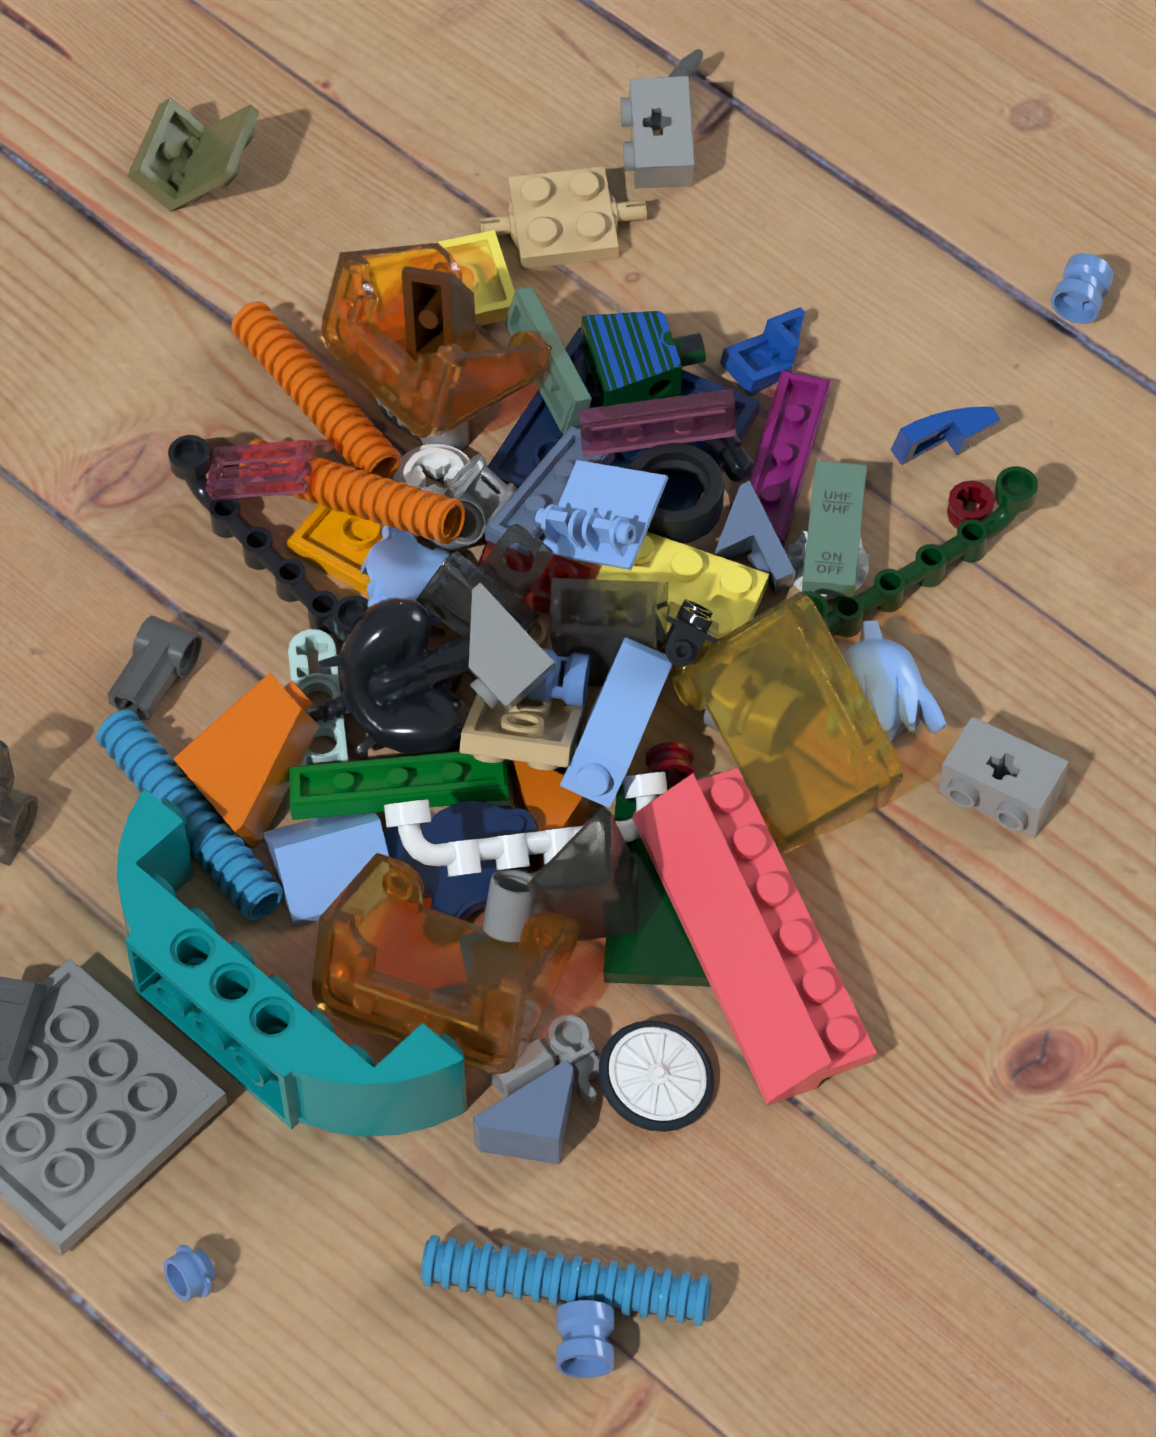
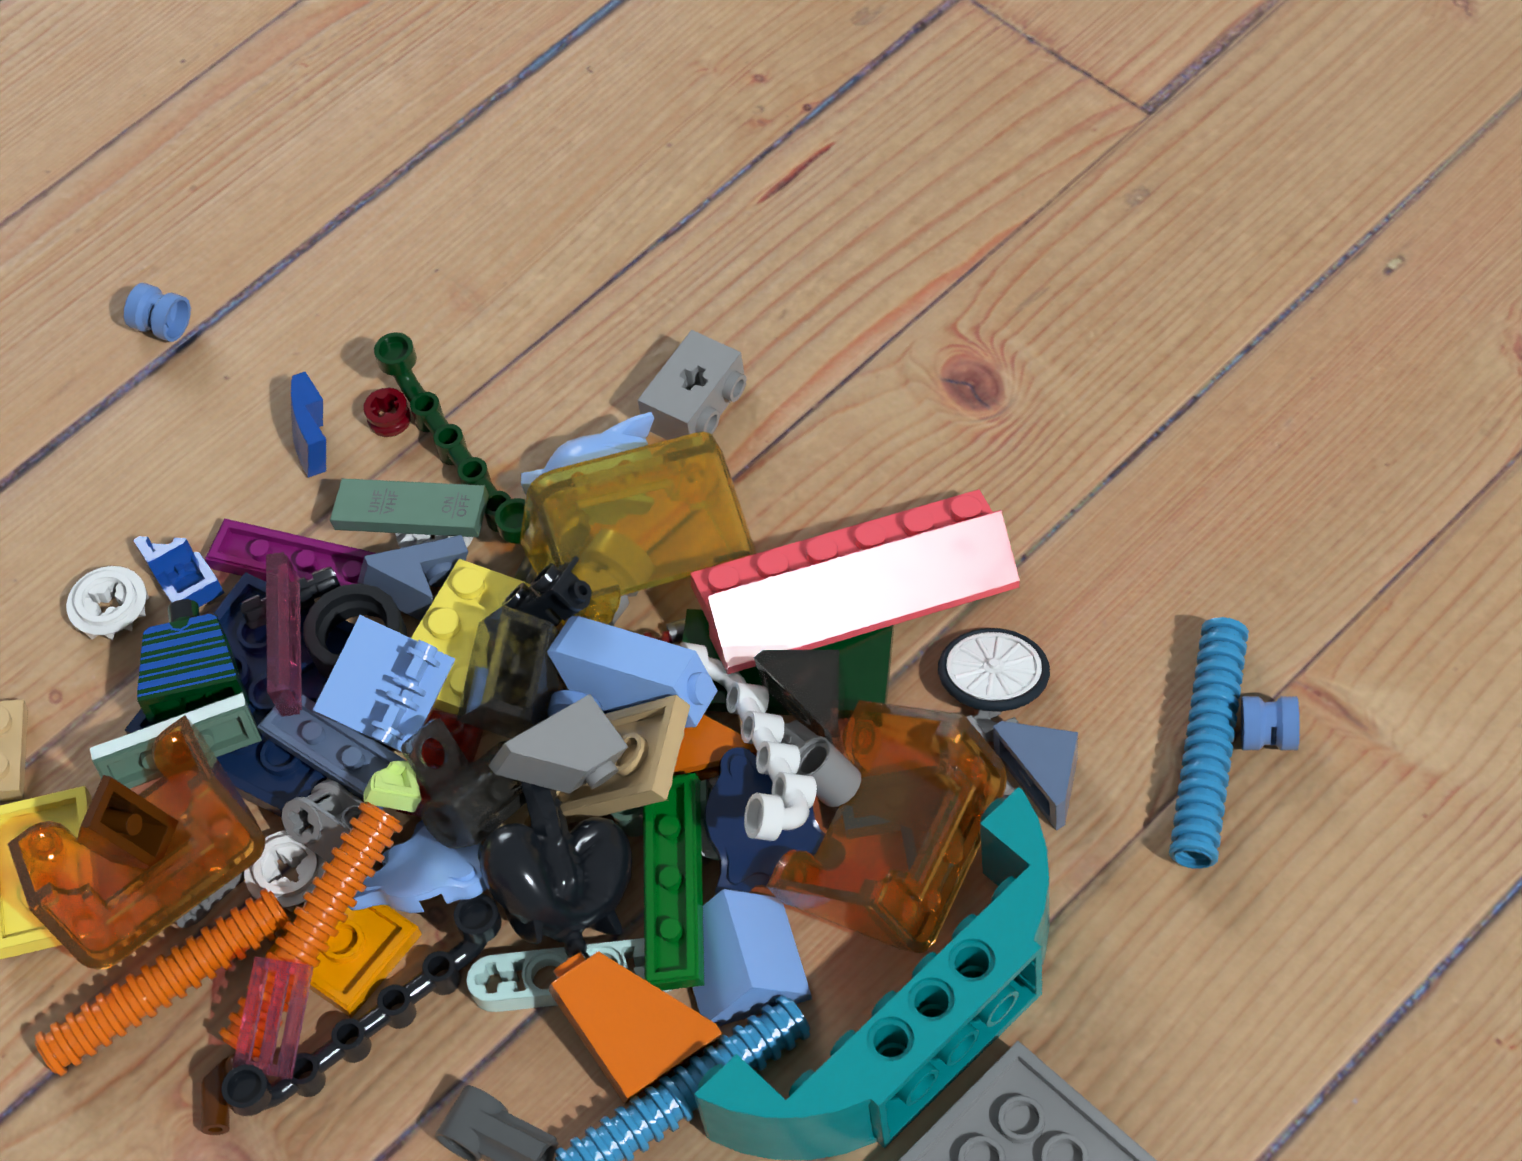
camera: 80 degrees left, 0 degrees up
(189, 1273) = (1213, 1072): medium blue plate -> none
(484, 529) = (394, 787): none -> yellowish green tile
(718, 284) = (99, 587): none -> white gear

